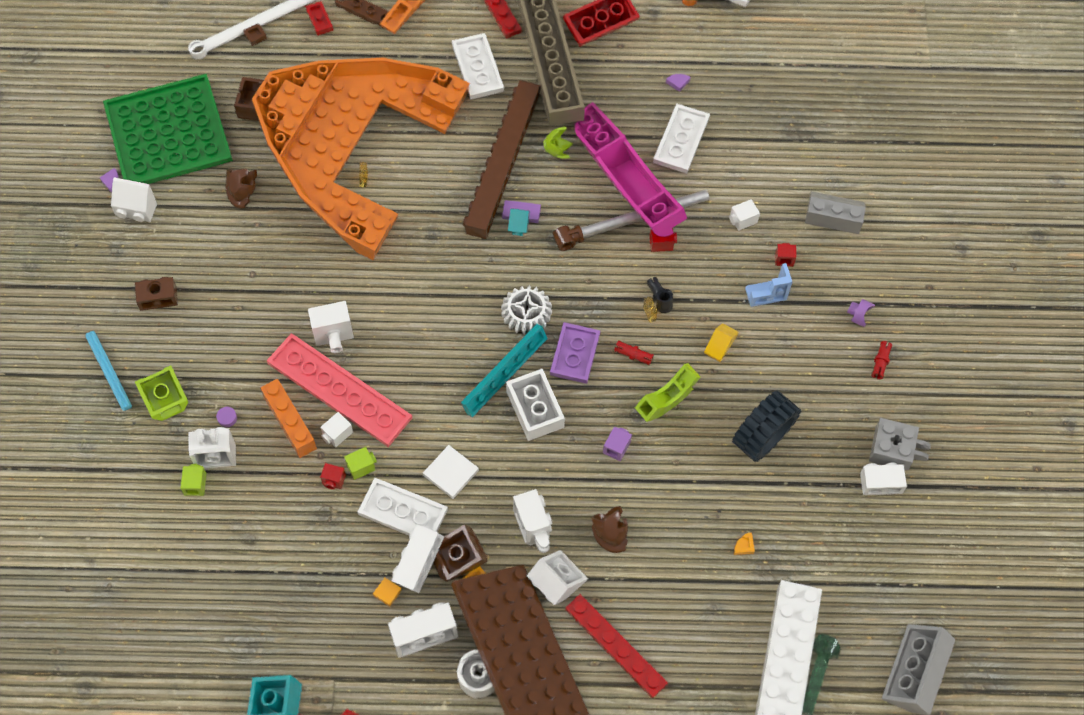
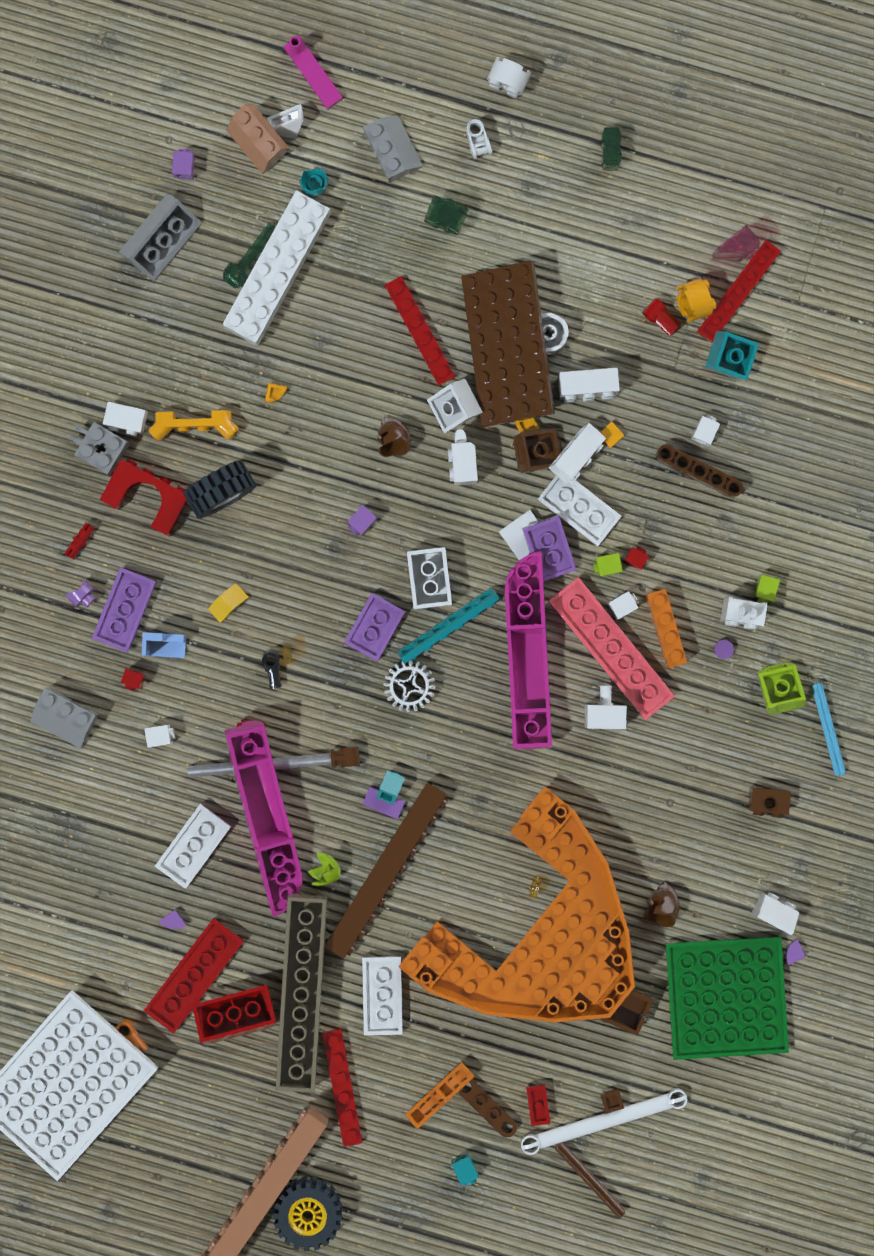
camera: 165 degrees left, 25 degrees up
(278, 570) = (709, 471): none -> reddish brown beam
(287, 619) = (705, 430): none -> white brick
(419, 359) = (528, 654): none -> dark pink slope
(423, 461) = (550, 539): none -> medium lavender plate
(634, 352) = (317, 612): red pin -> none
(645, 45) = (193, 975): none -> red plate
(669, 396) = (300, 555): lime arch -> none
(791, 501) = (219, 420): none -> light orange plate
(816, 311) = (124, 610): none -> medium lavender plate
(857, 428) = (128, 476): none -> red arch

